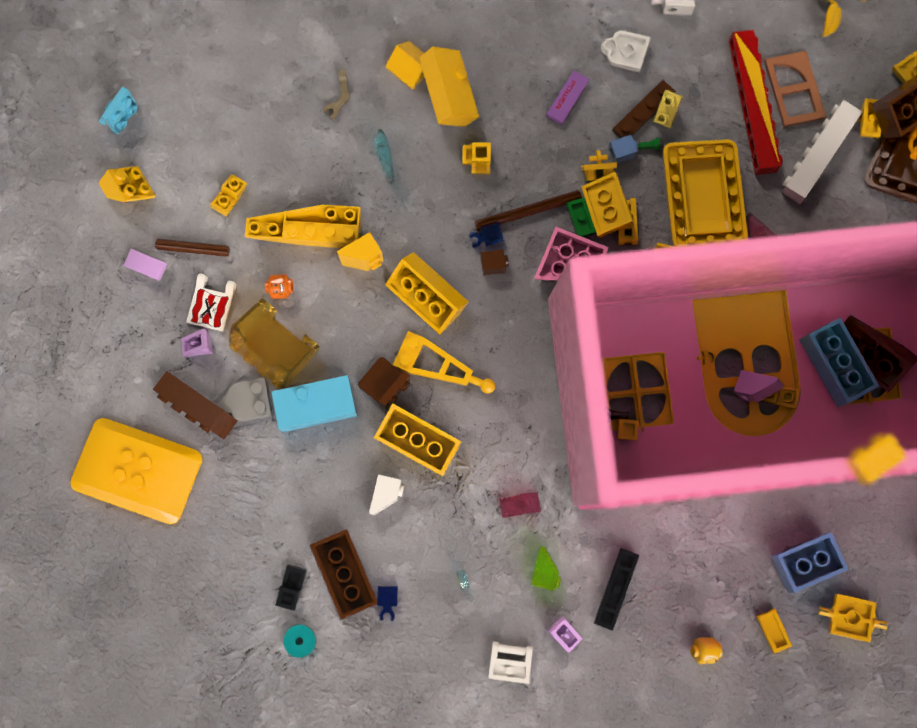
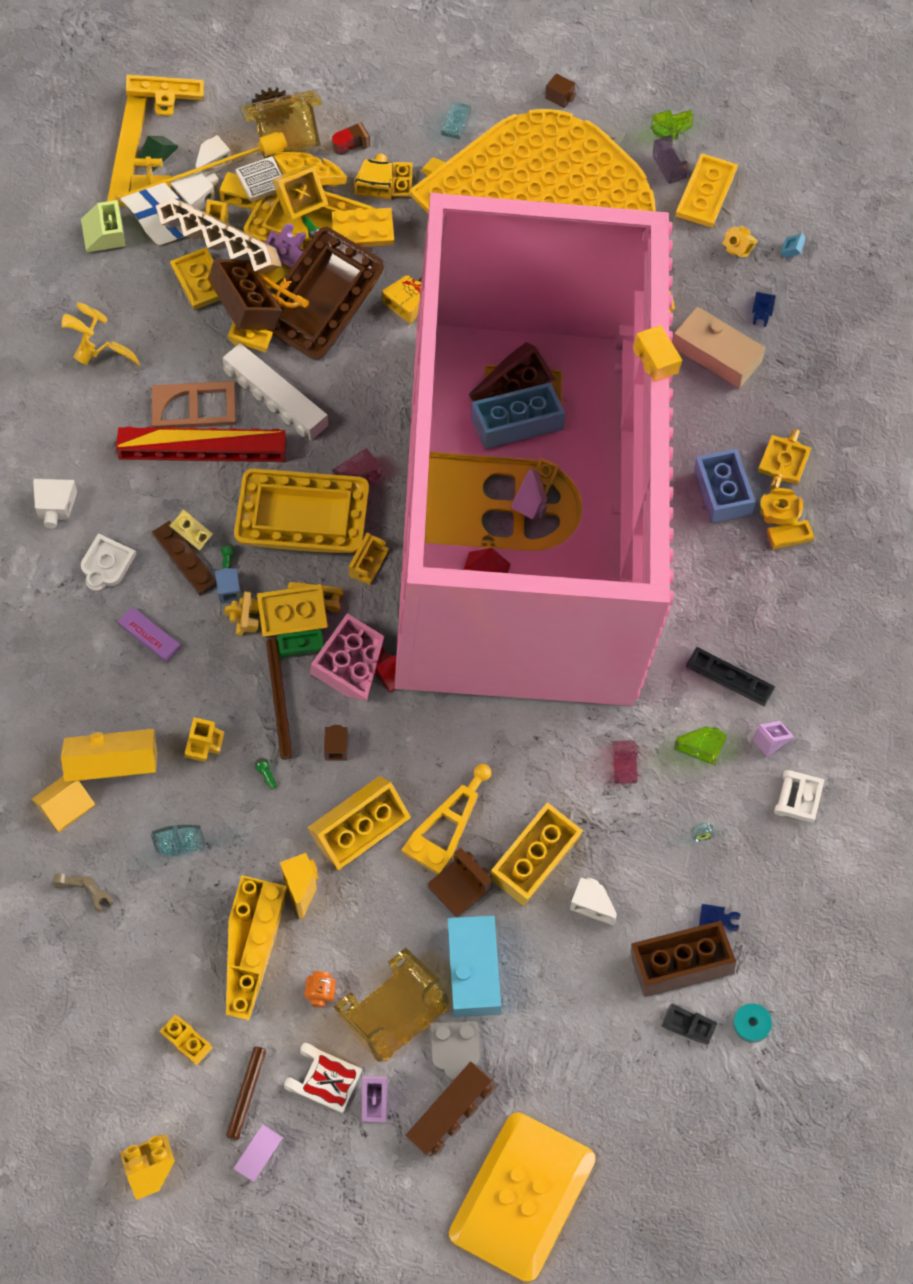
camera: 80 degrees left, 15 degrees down
(119, 111) = (42, 1165): medium azure plate -> none
(464, 209) = (263, 767): none -> green piece
(490, 235) = (302, 743): clear blue plate -> none
(679, 359) = (487, 561): none -> red slope
(706, 650) = (805, 599): yellow head -> none
(789, 615) = (781, 496): none -> yellow plate

